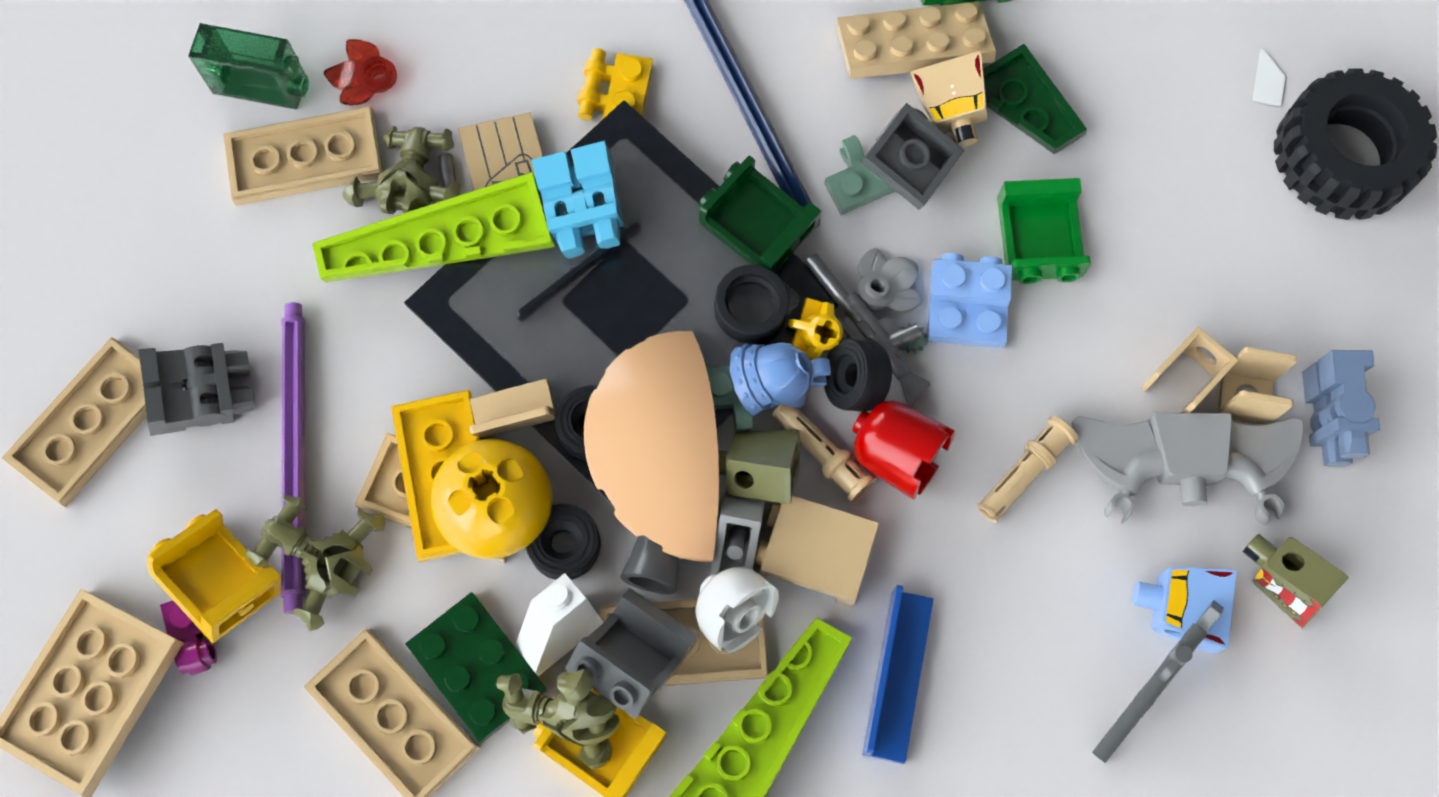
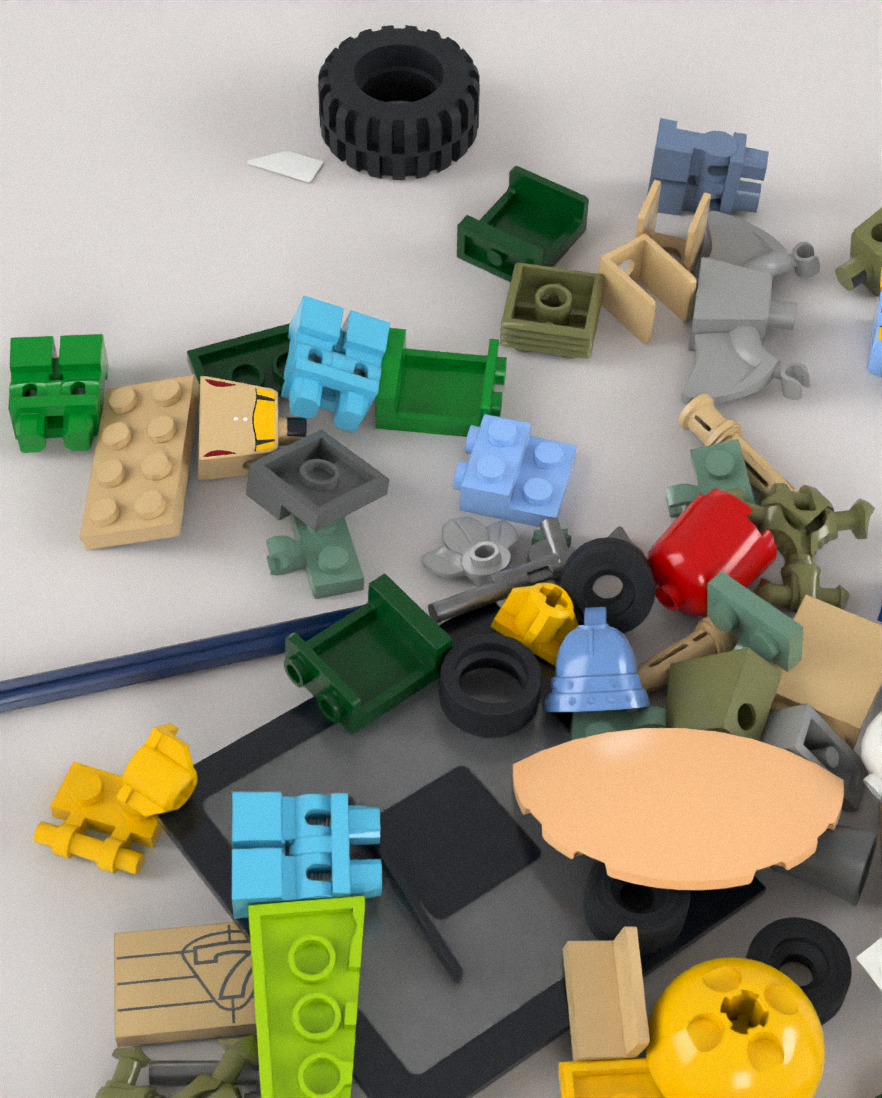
camera: 80 degrees left, 20 degrees down
(630, 102) = (159, 774): none -> yellow piece
(826, 488) = (754, 622): none -> sand green plate
(951, 515) = (800, 527): none -> olive piece
(980, 457) = (715, 467): none -> sand green plate
(1034, 147) = (333, 364): none -> medium azure hips
(1159, 287) = (552, 310): none -> olive brick
(1238, 273) = (528, 225): none -> dark green panel

